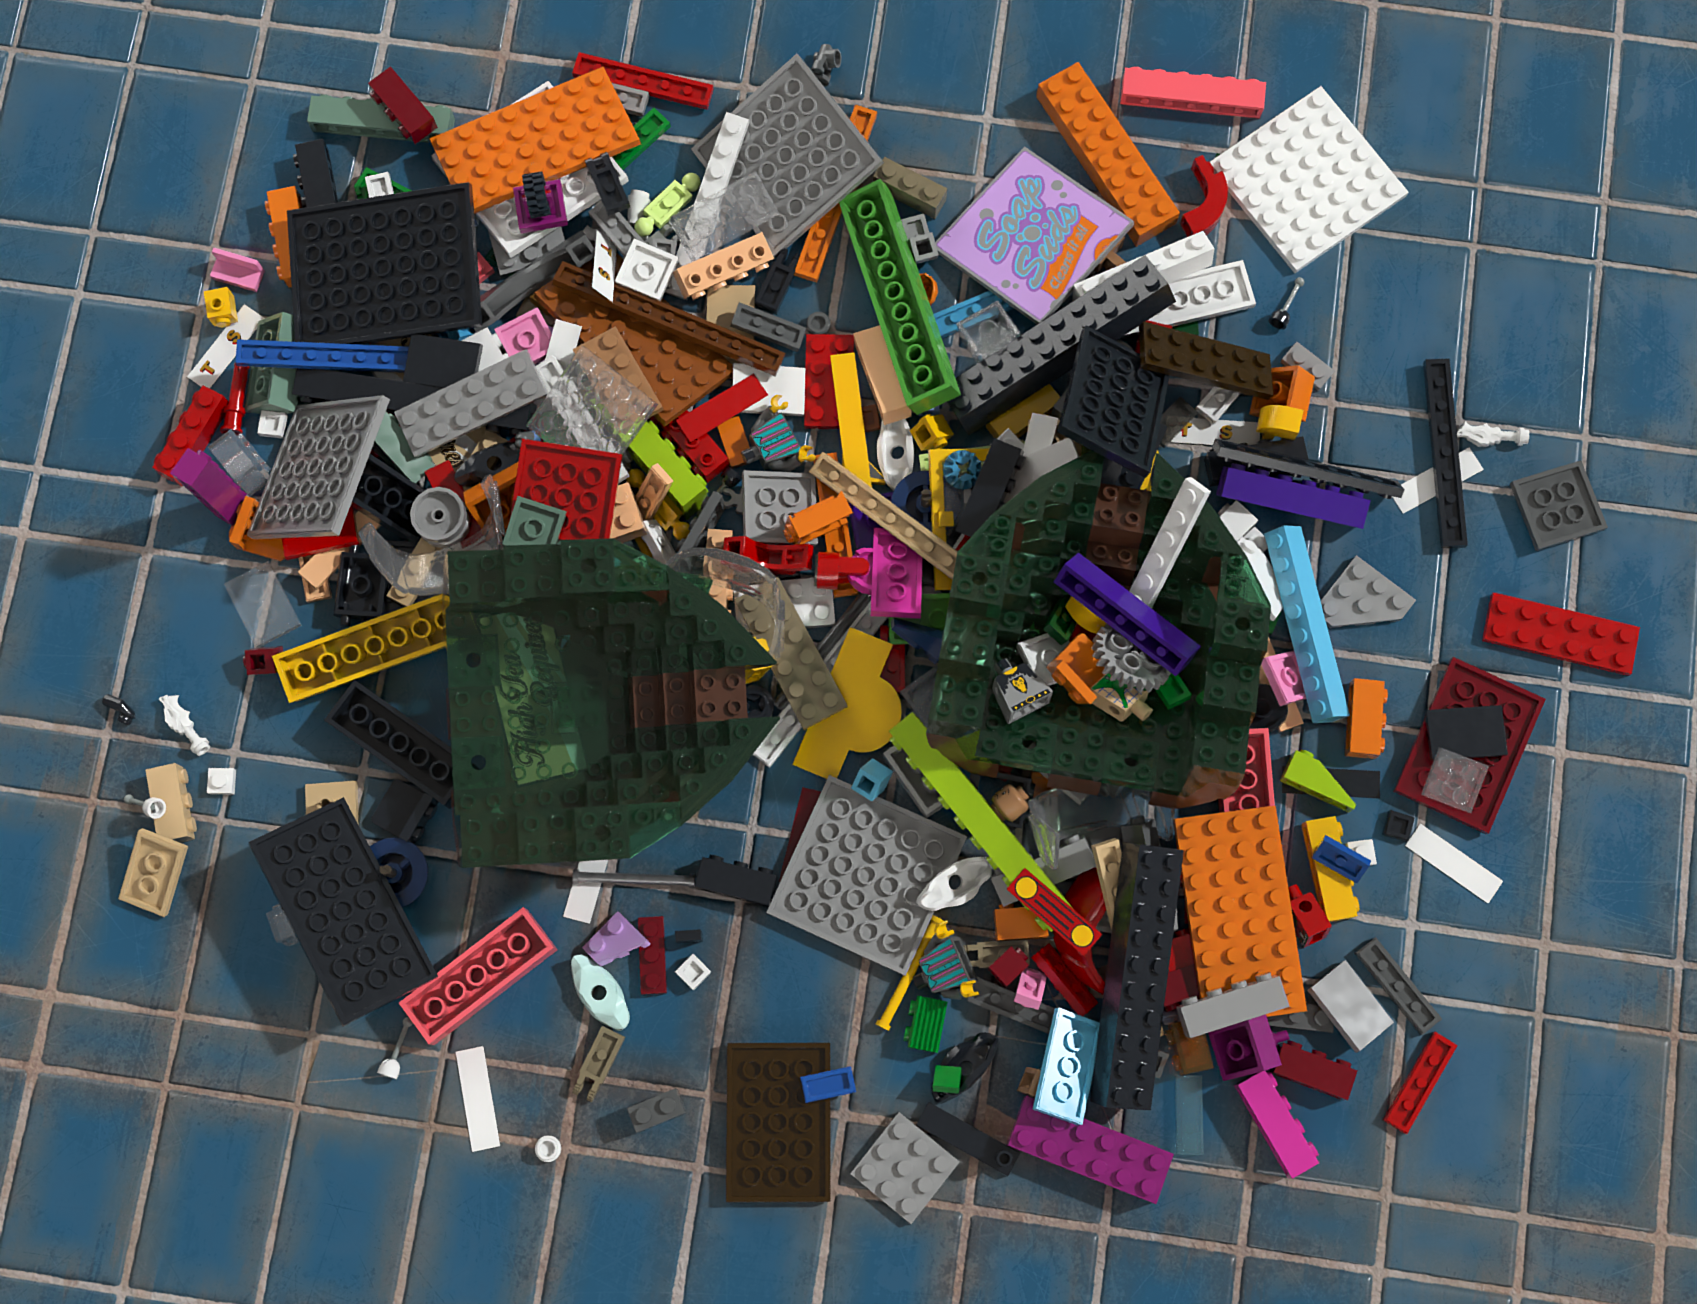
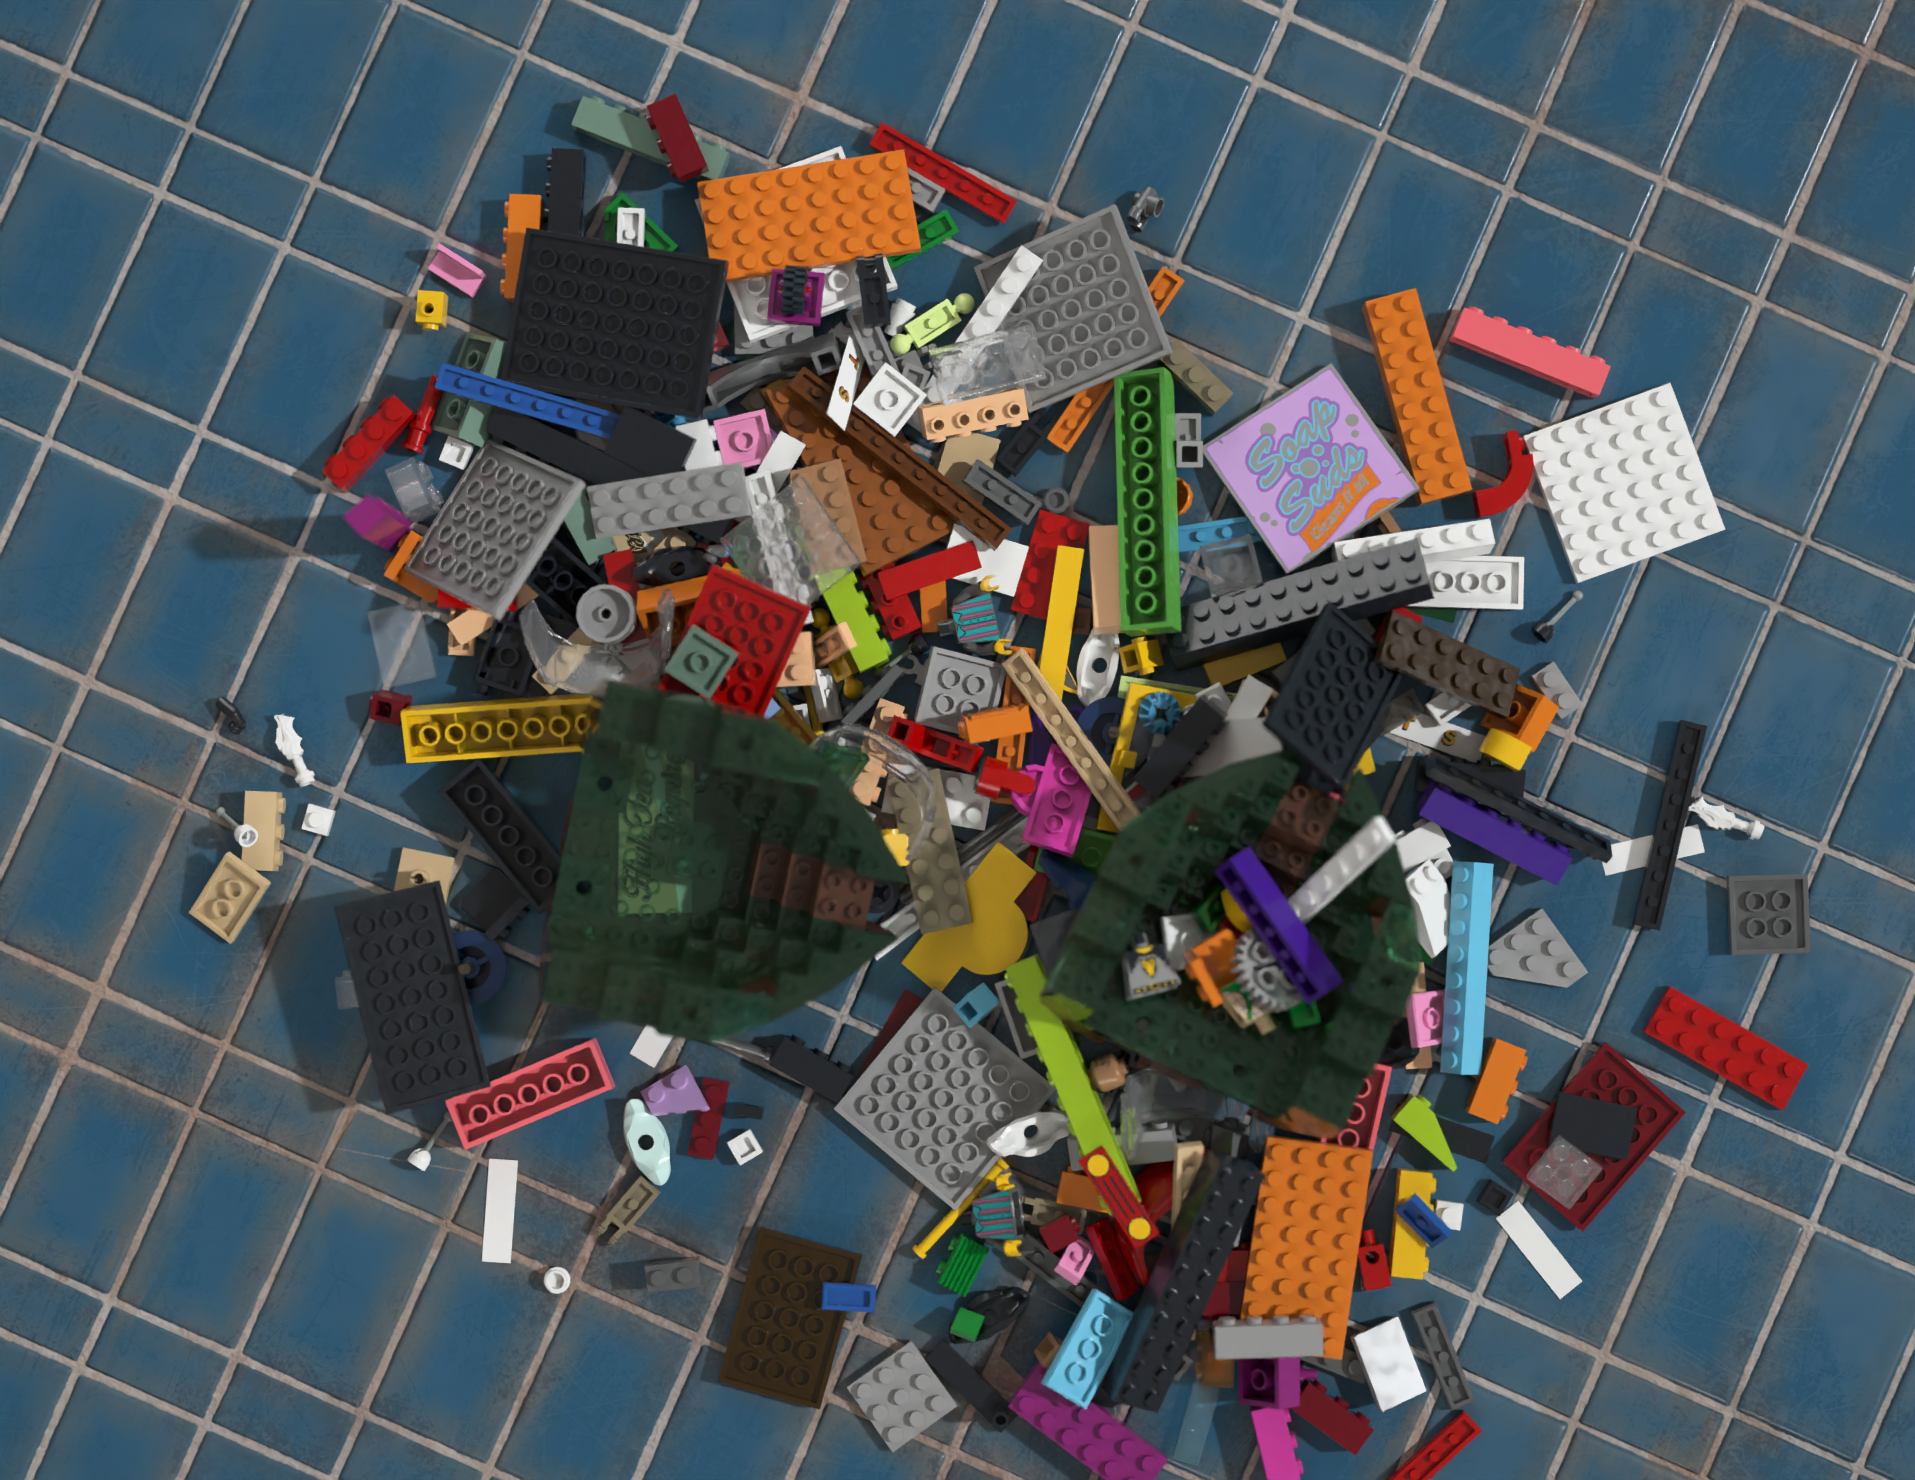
camera: 15 degrees right, 10 degrees up
(224, 348) = (426, 352): white sticker -> none

